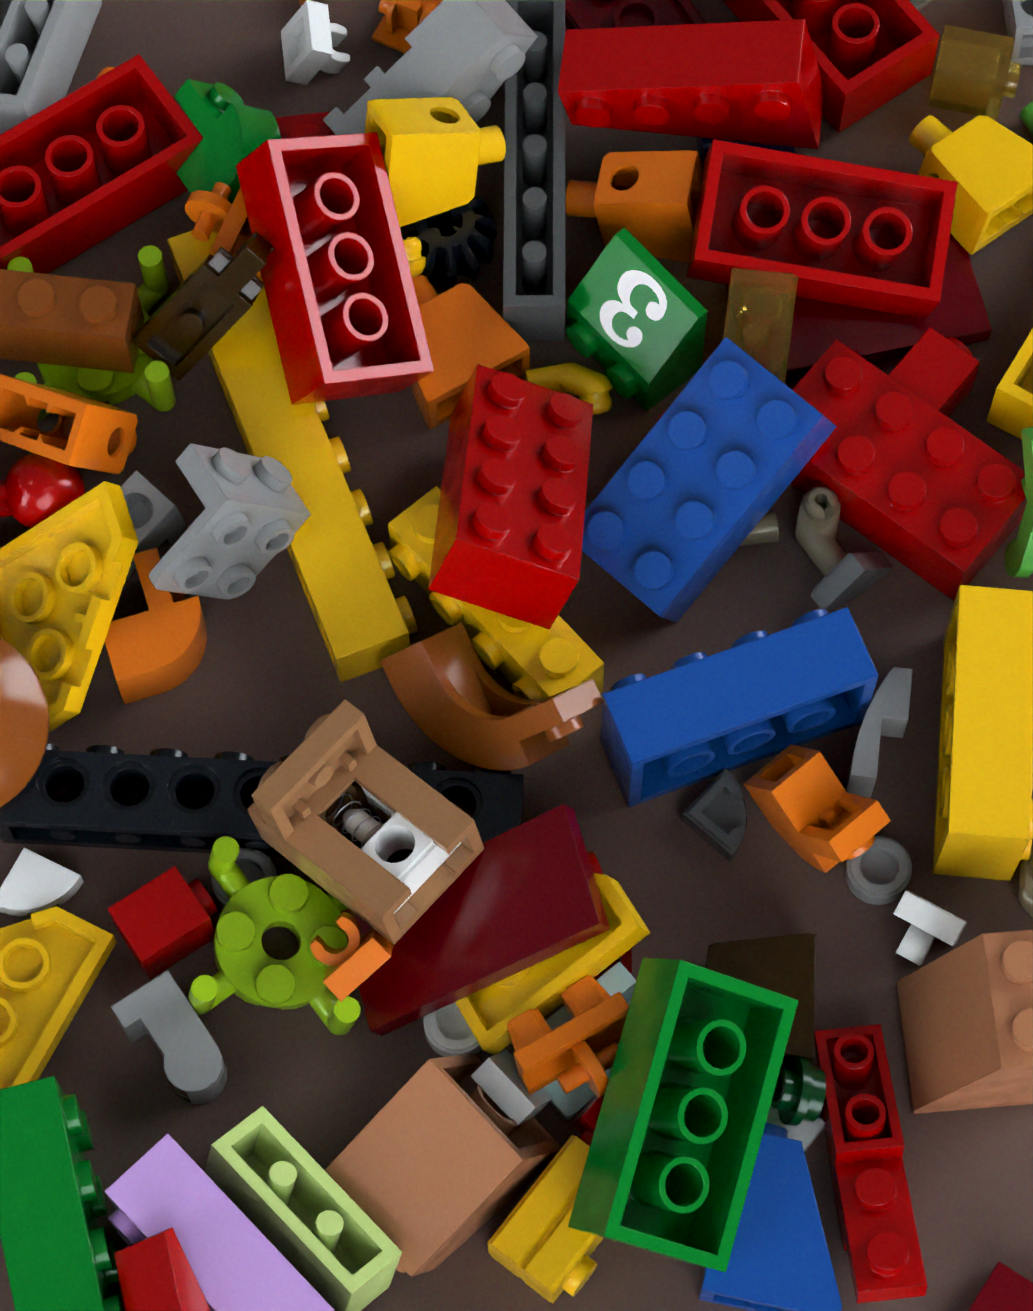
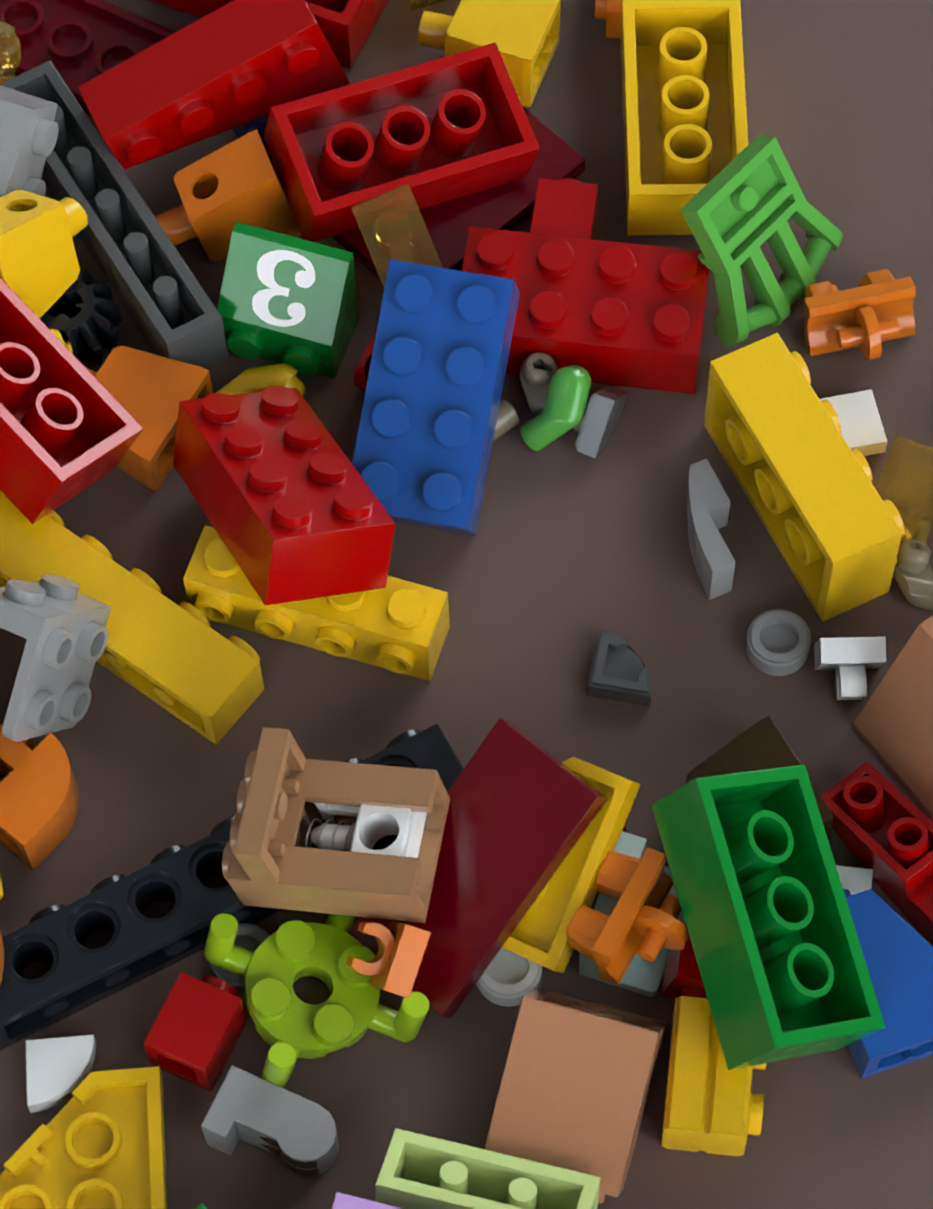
camera: 30 degrees left, 5 degrees down
(471, 714) = (359, 702): dark orange arch -> none
(502, 1084) = (594, 993): white tile -> none
(736, 704) = (580, 567): blue brick -> none
(799, 1092) = (848, 850): dark green plate -> none
(813, 809) = (696, 621): orange brick -> none
(819, 550) = (562, 410): none -> bright green arm

